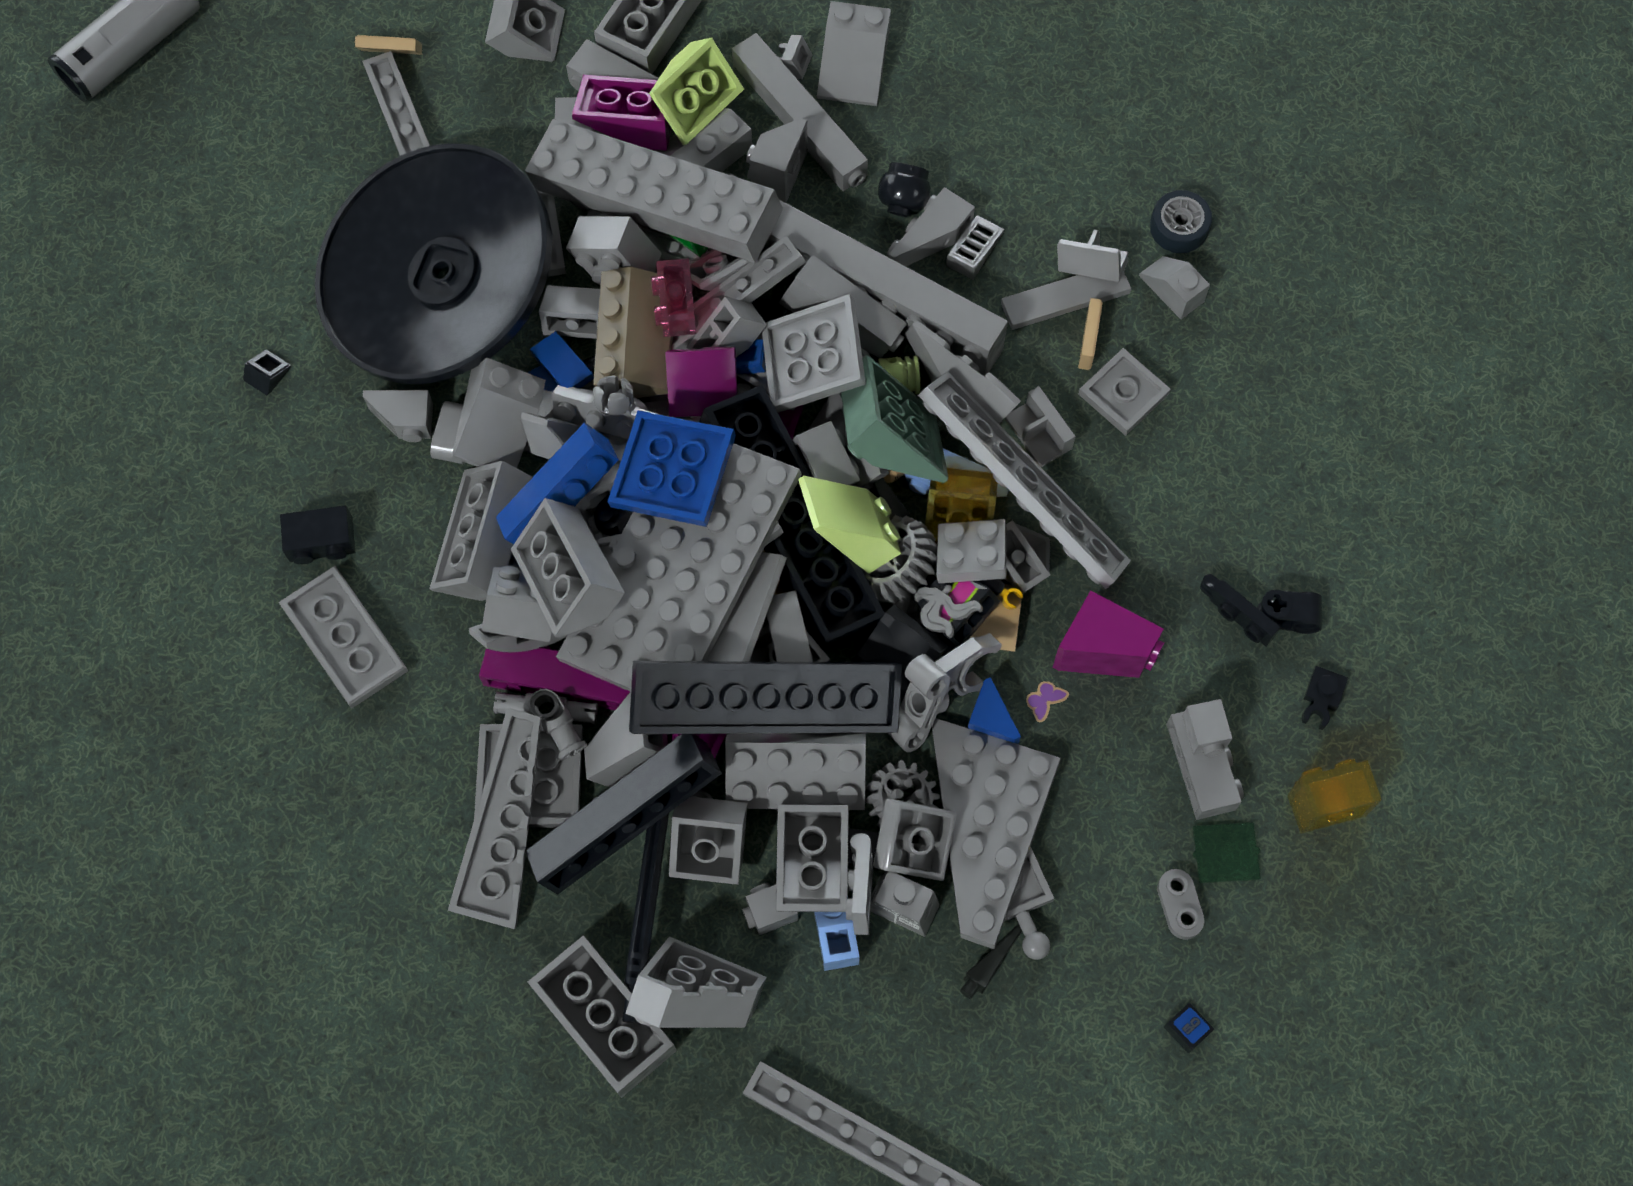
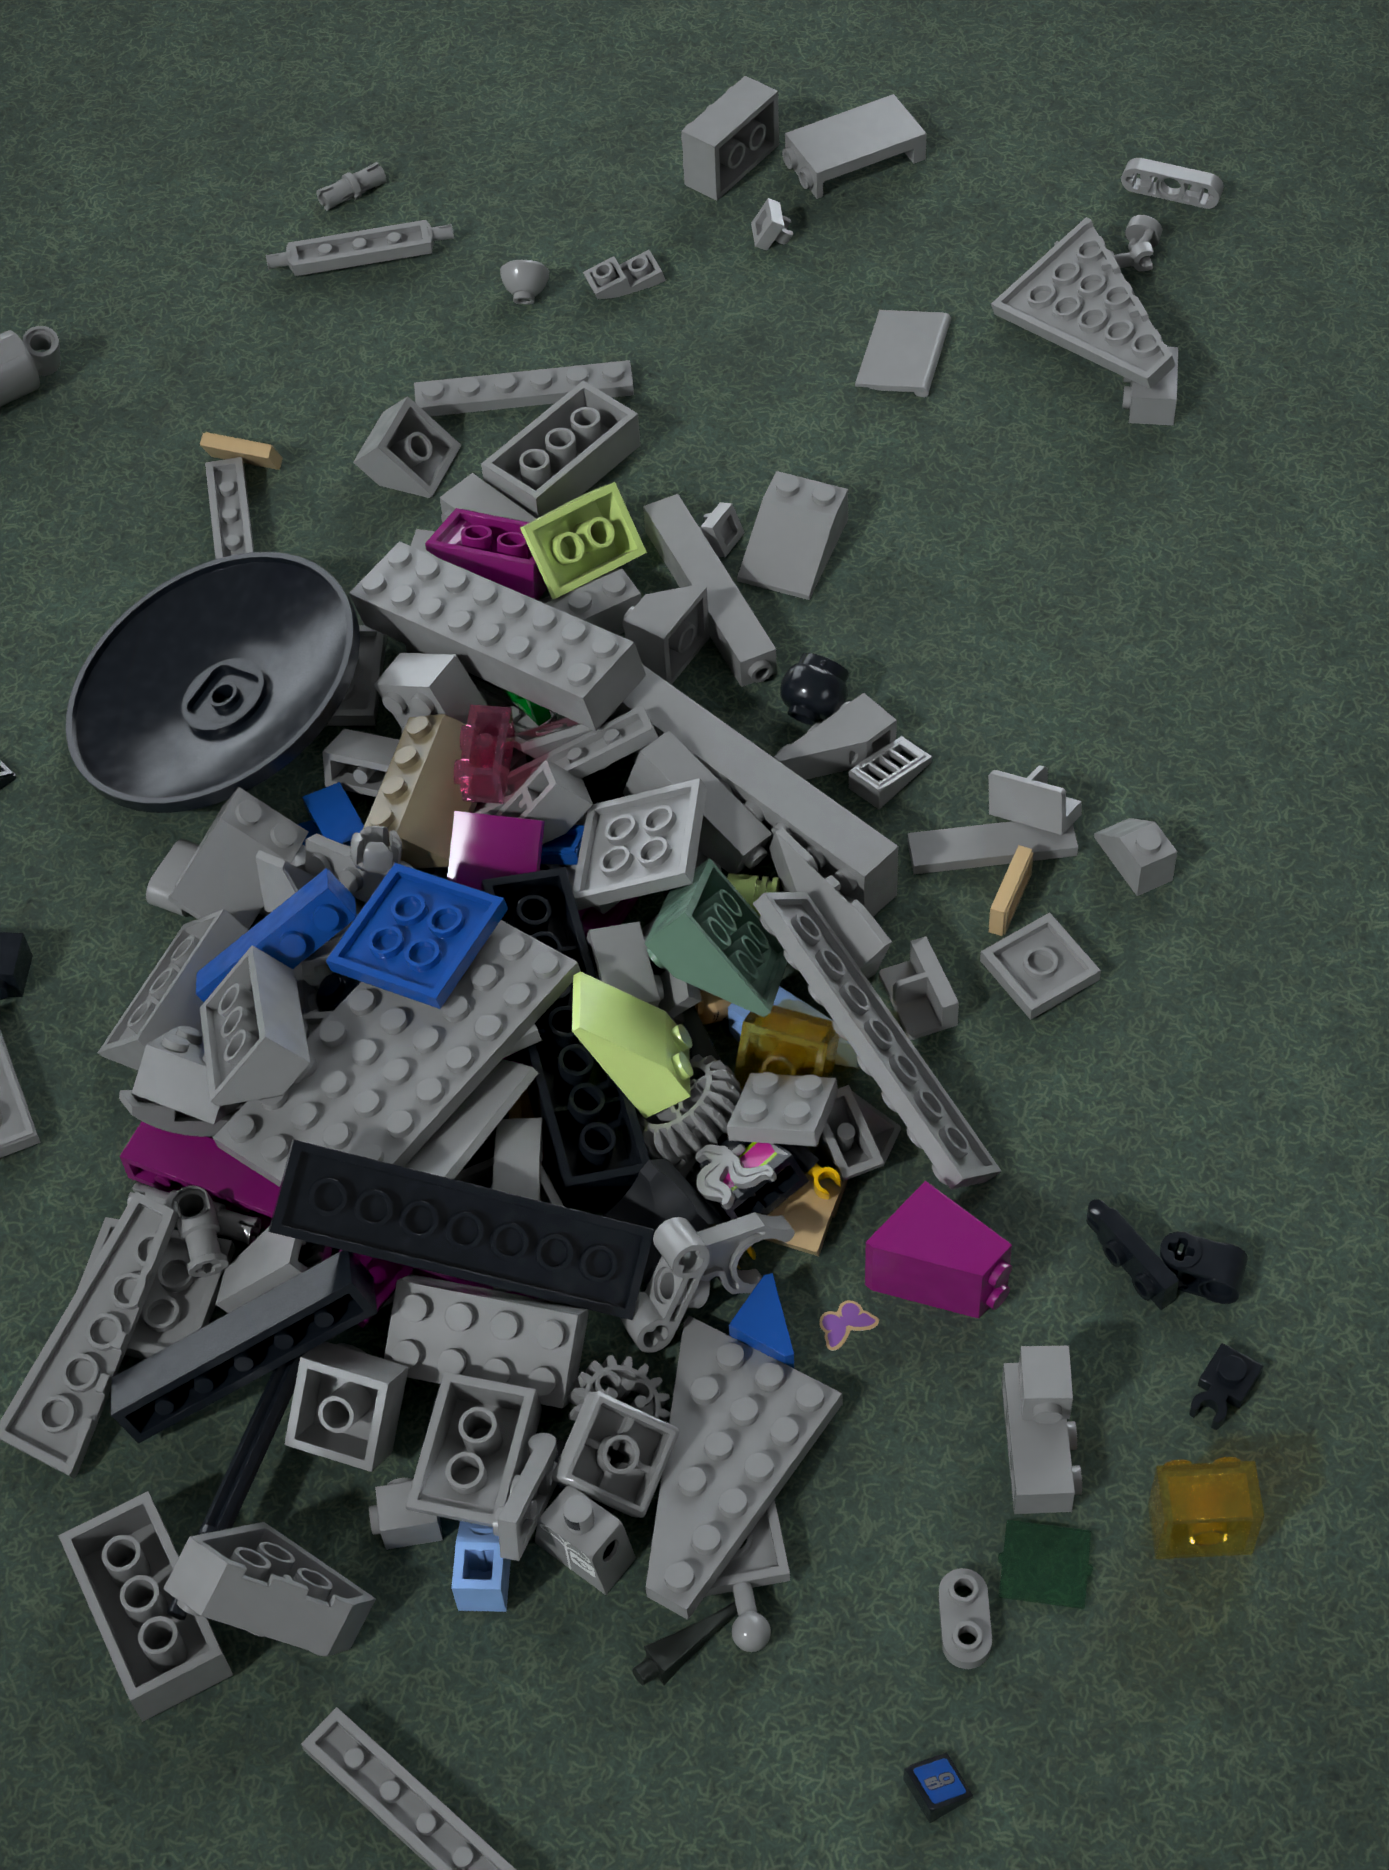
camera: 15 degrees right, 15 degrees down
(403, 412) = (129, 843): light grey slope -> none
(1191, 211) = (1163, 762): wheel -> none

